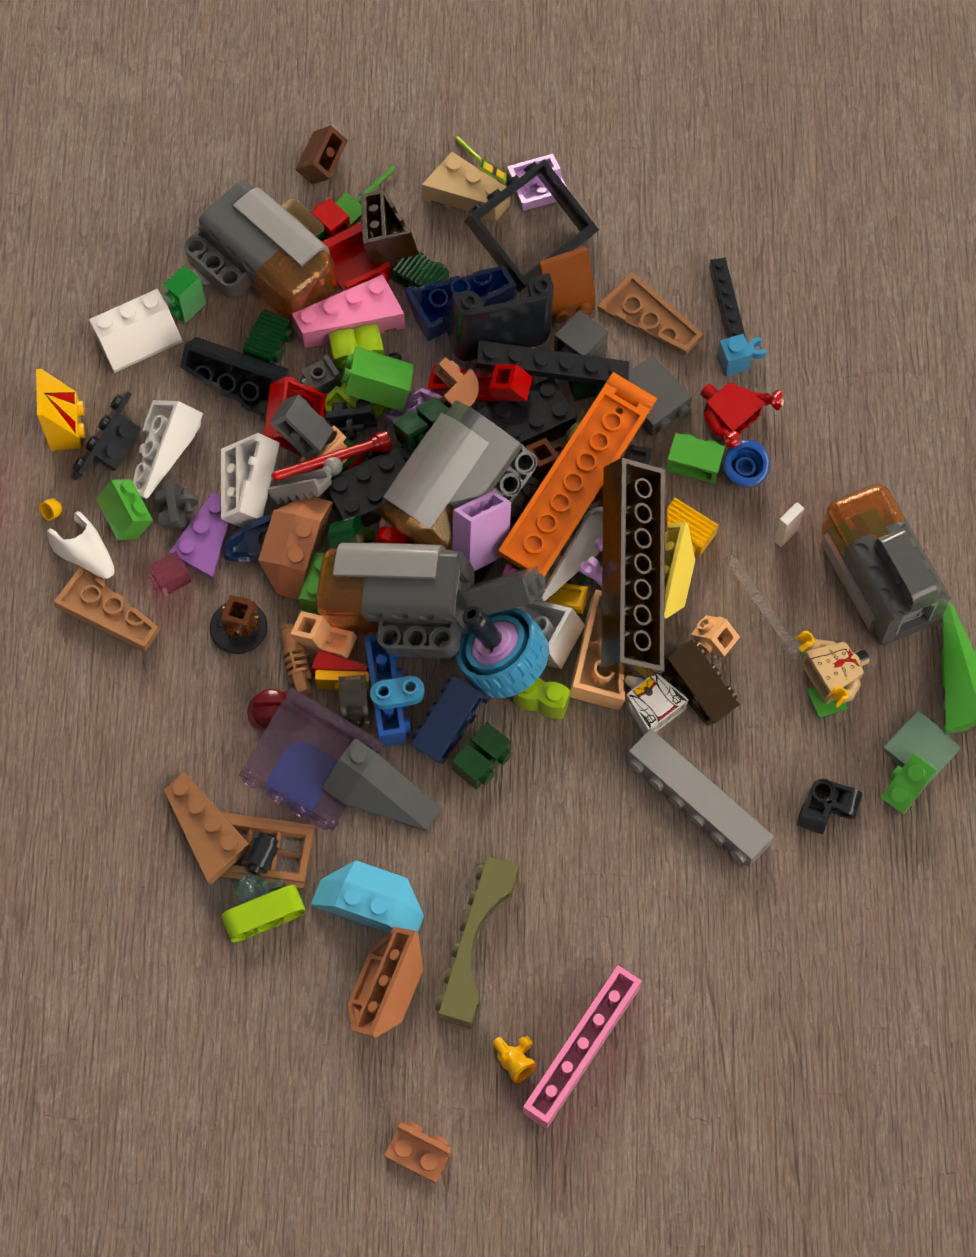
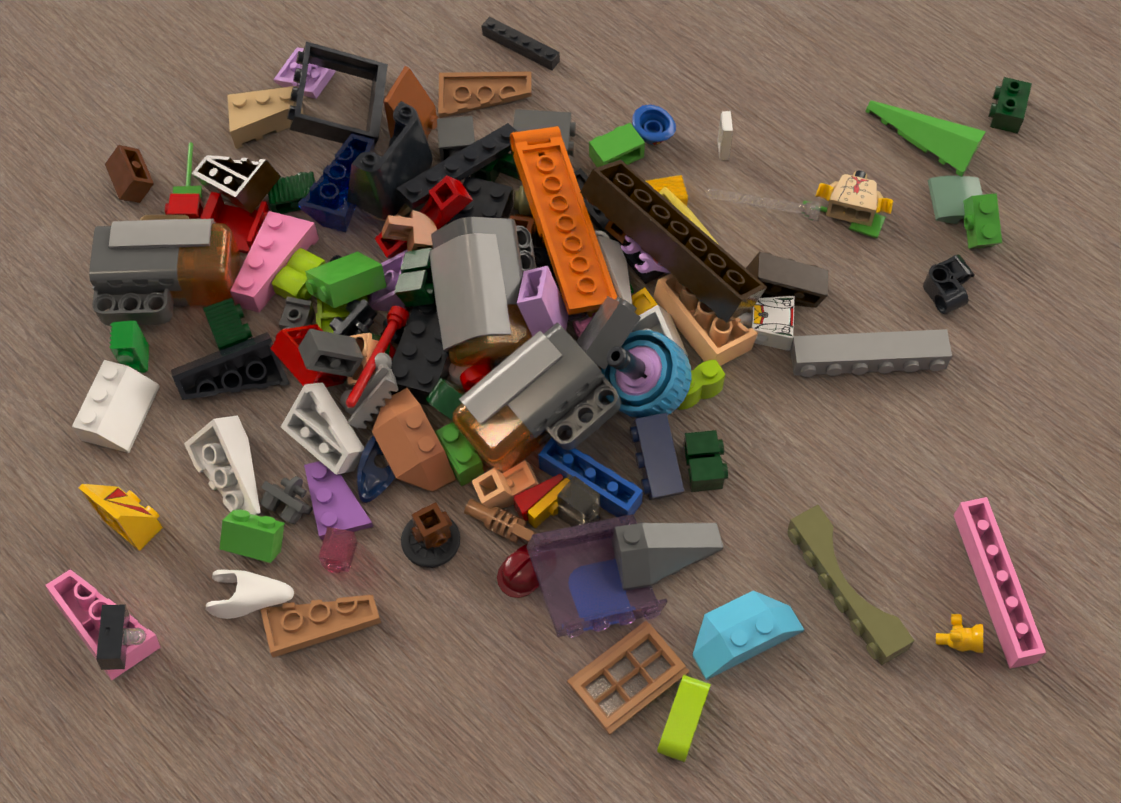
camera: 45 degrees left, 5 degrees down
(50, 509) = (183, 591): yellow hinge -> none
(112, 440) = (182, 500): black bracket -> none
(208, 831) = (577, 700): medium nougat wing -> none
(253, 887) = (657, 707): clear light blue piece -> none
(260, 854) = (637, 676): black brick -> none
(386, 983) = (824, 677): nougat wedge -> none
(397, 695) = (609, 467): dark azure plate -> none
(418, 1151) = (979, 768): nougat bracket -> none
(484, 165) = (247, 89): lime piece -> none
(715, 635) = (760, 239): light nougat brick -> none
(734, 410) = (605, 100): red torso -> none
(736, 353) = (566, 66): dark azure brick -> none
(882, 564) = (811, 106): dark grey piece -> none

